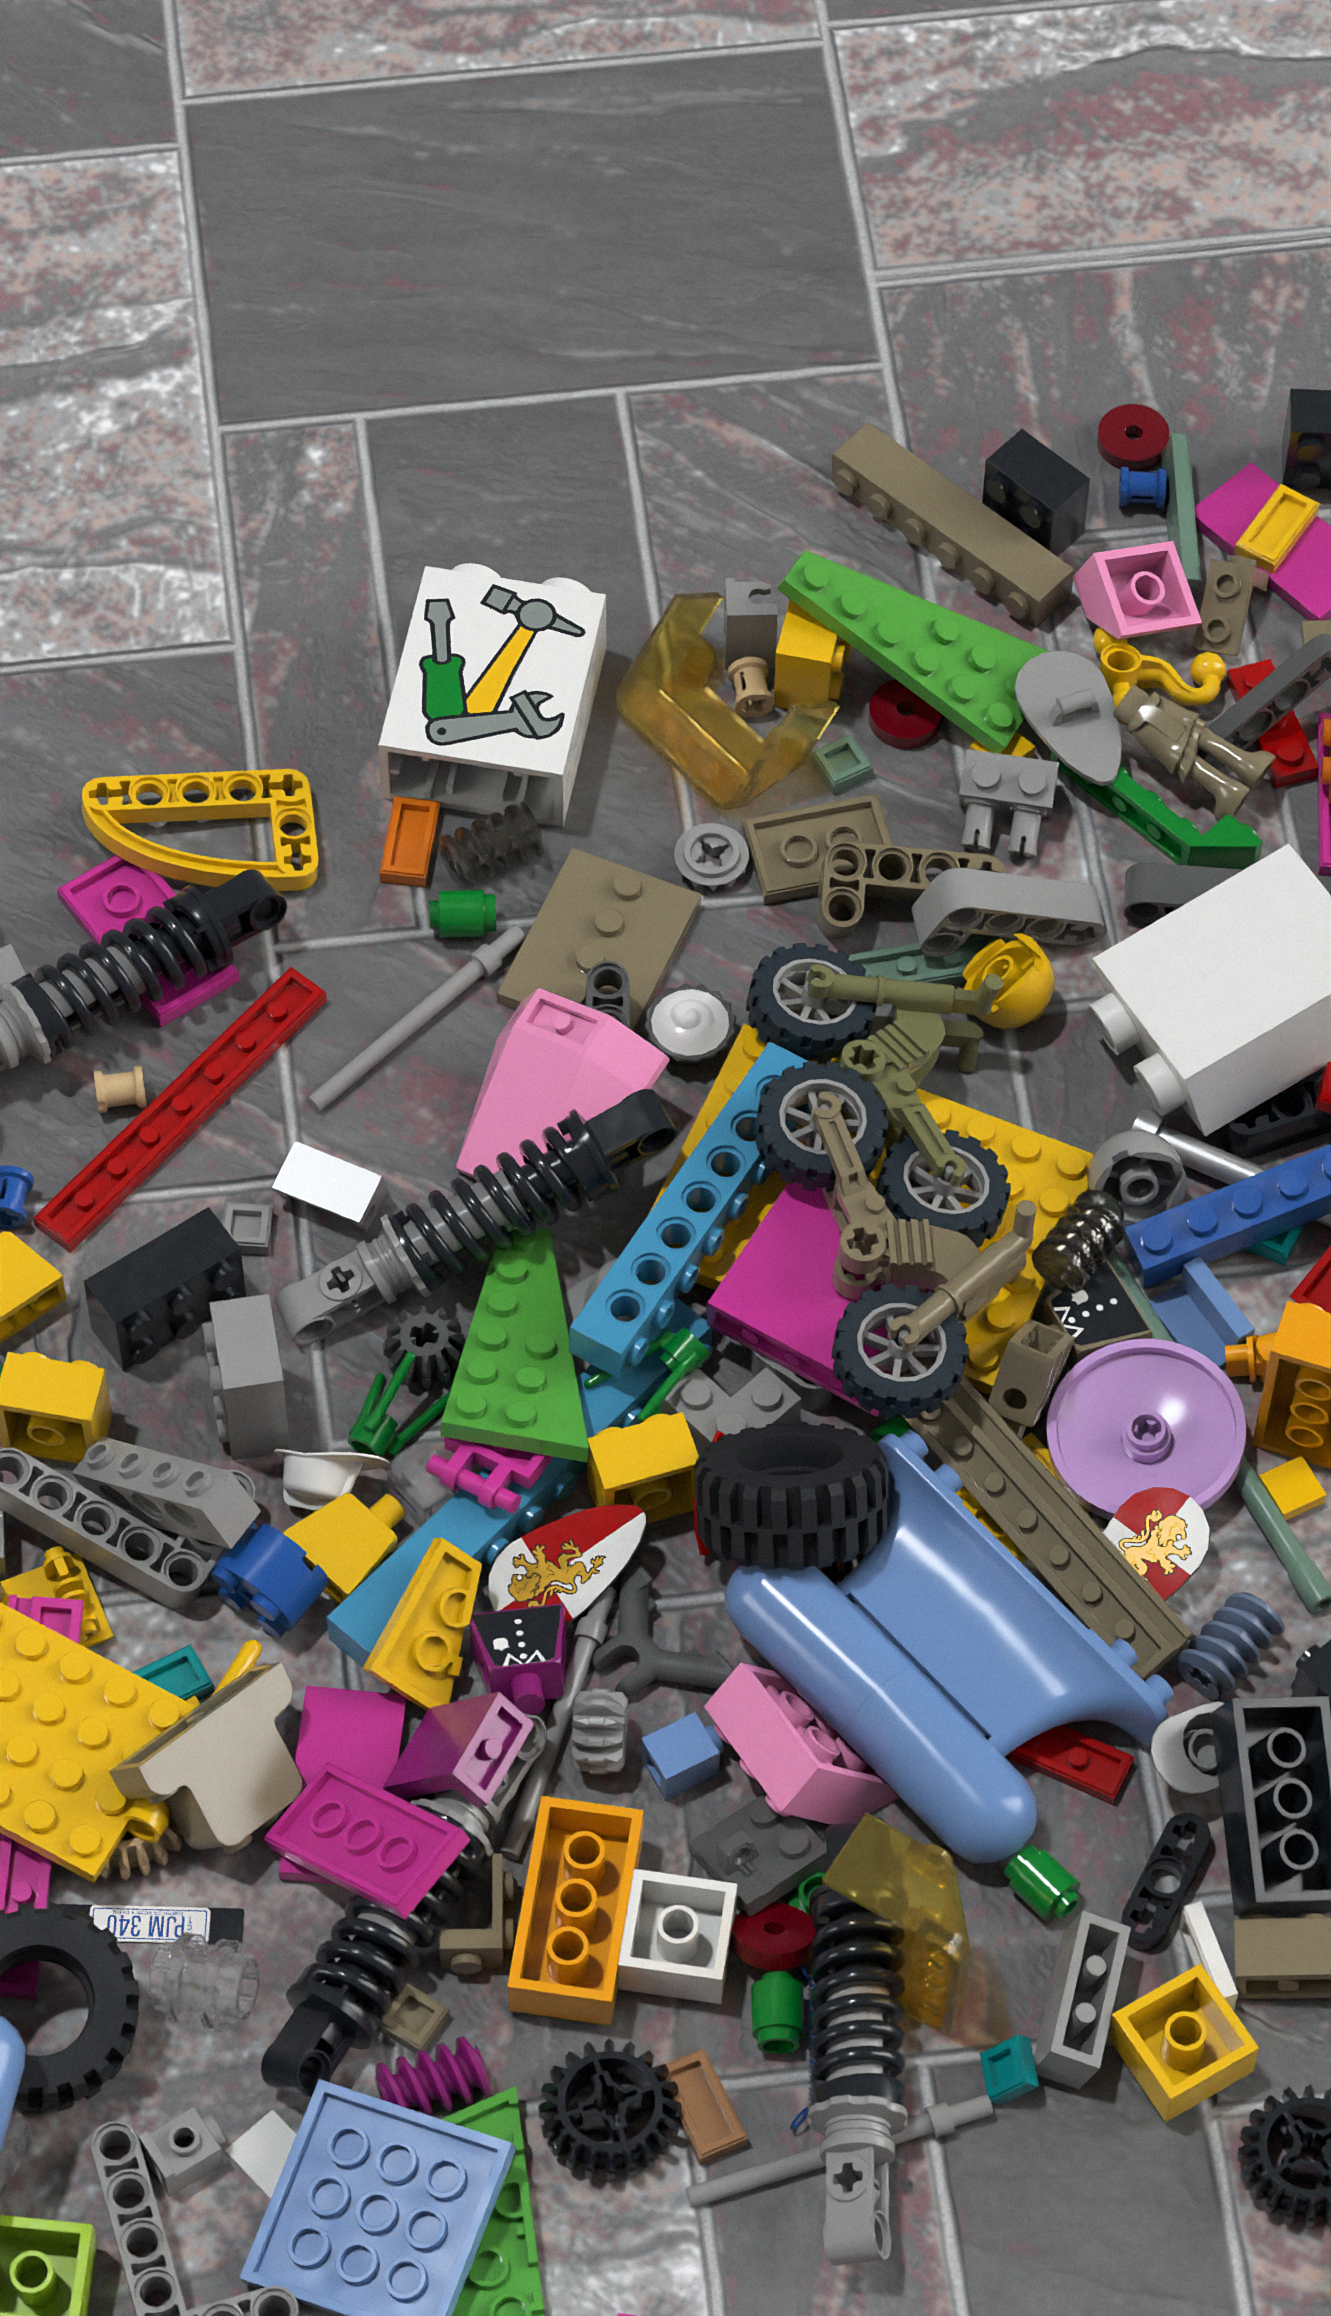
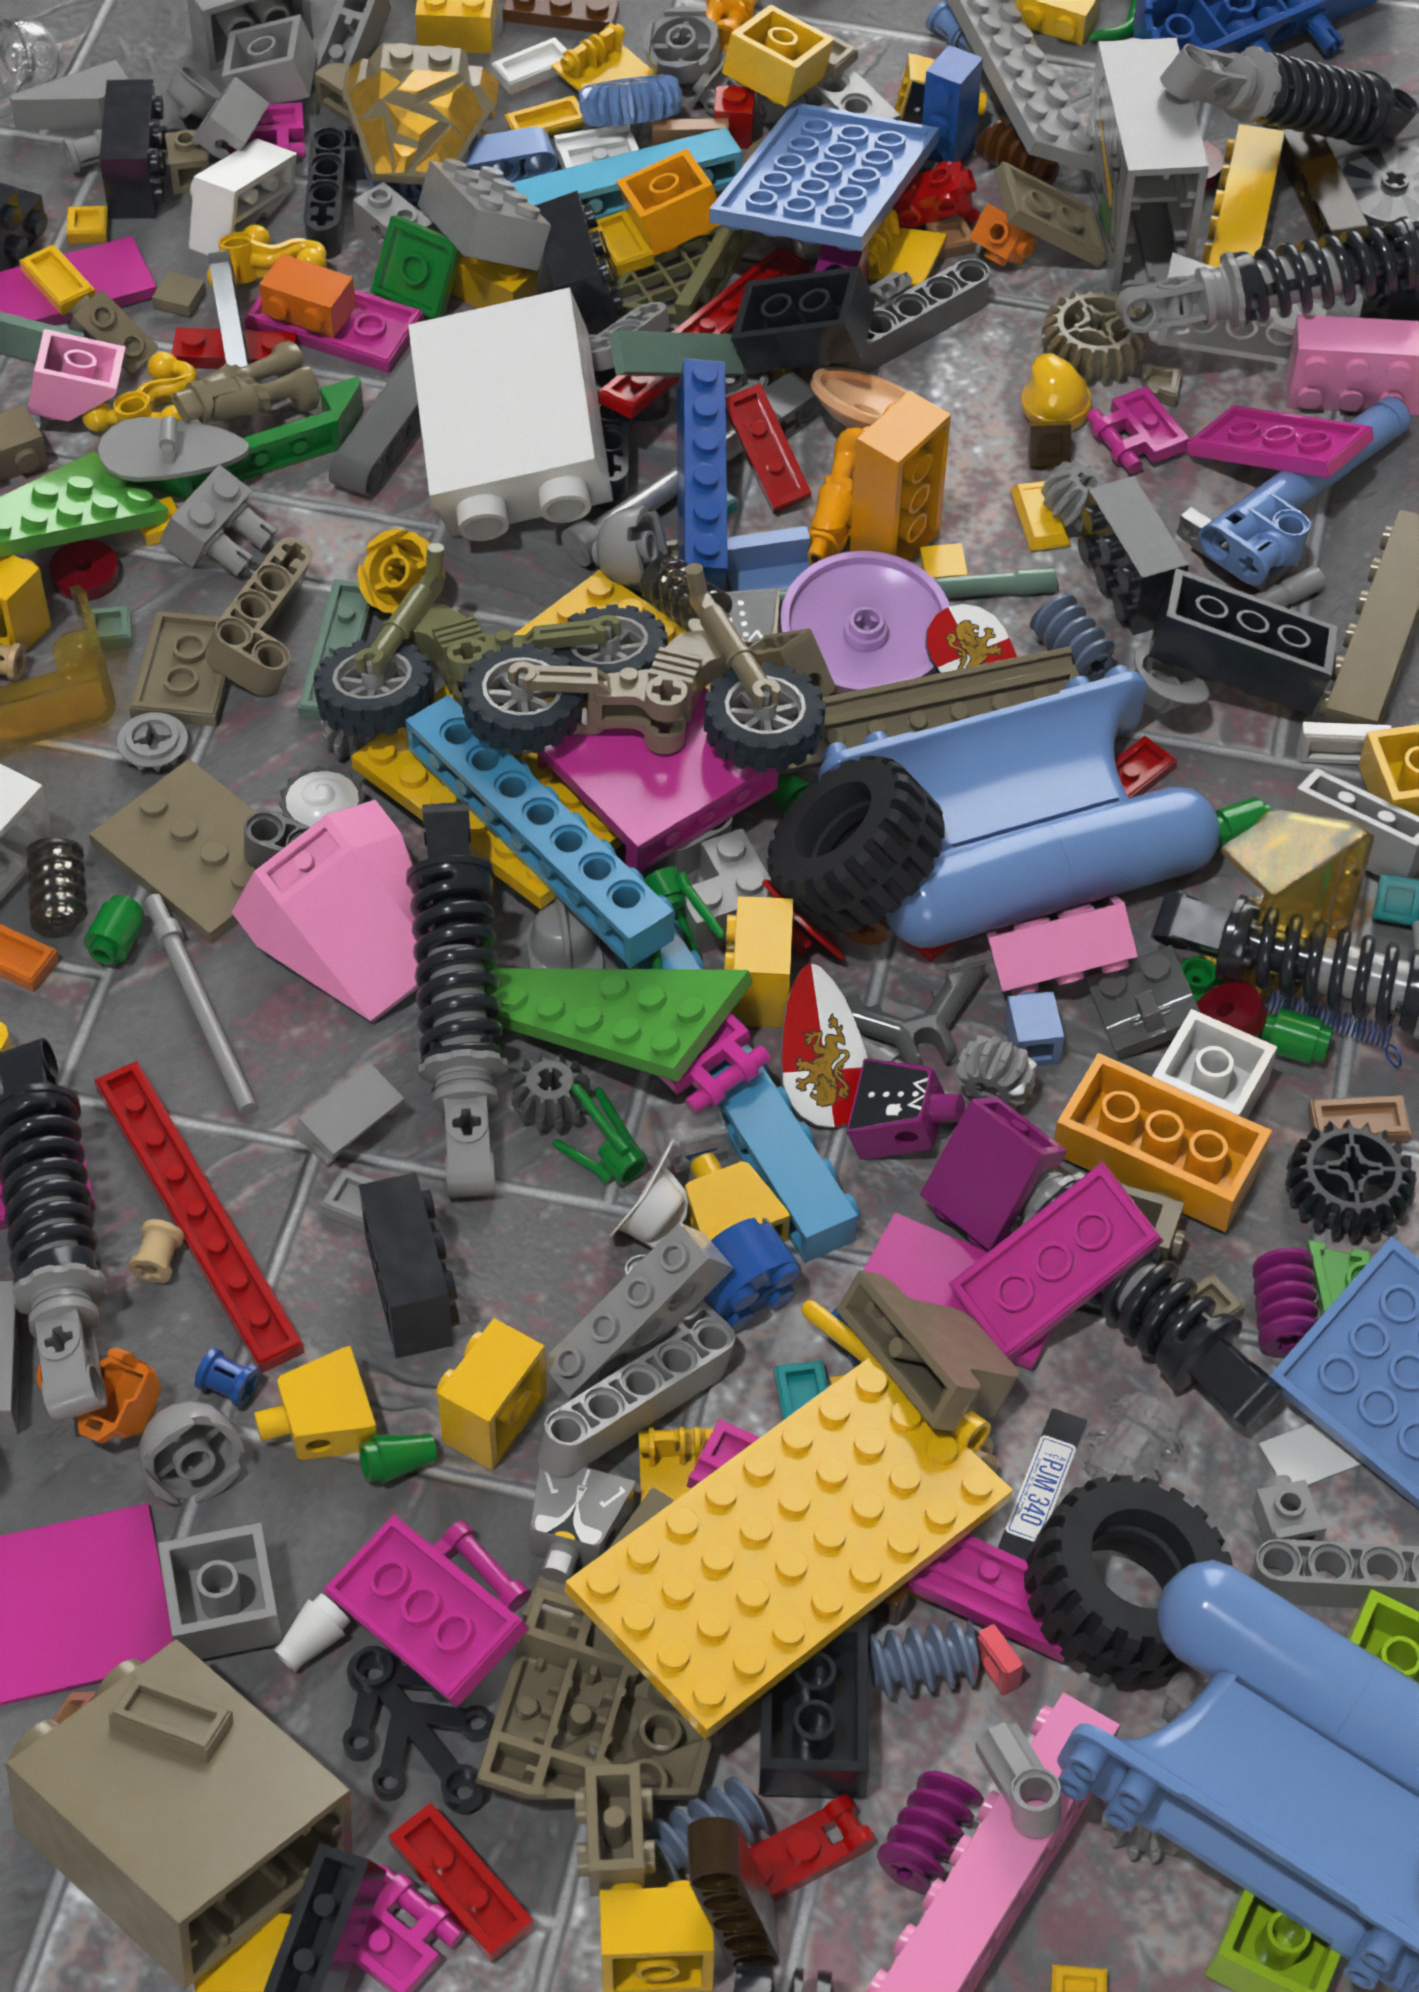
camera: 70 degrees left, 5 degrees down
(246, 1377) = (543, 1214): light grey brick -> none
(425, 1632) = (860, 1173): yellow wing -> none
(1003, 905) = (328, 558): light grey beam -> none
(1163, 1860) = (1252, 736): black beam -> none

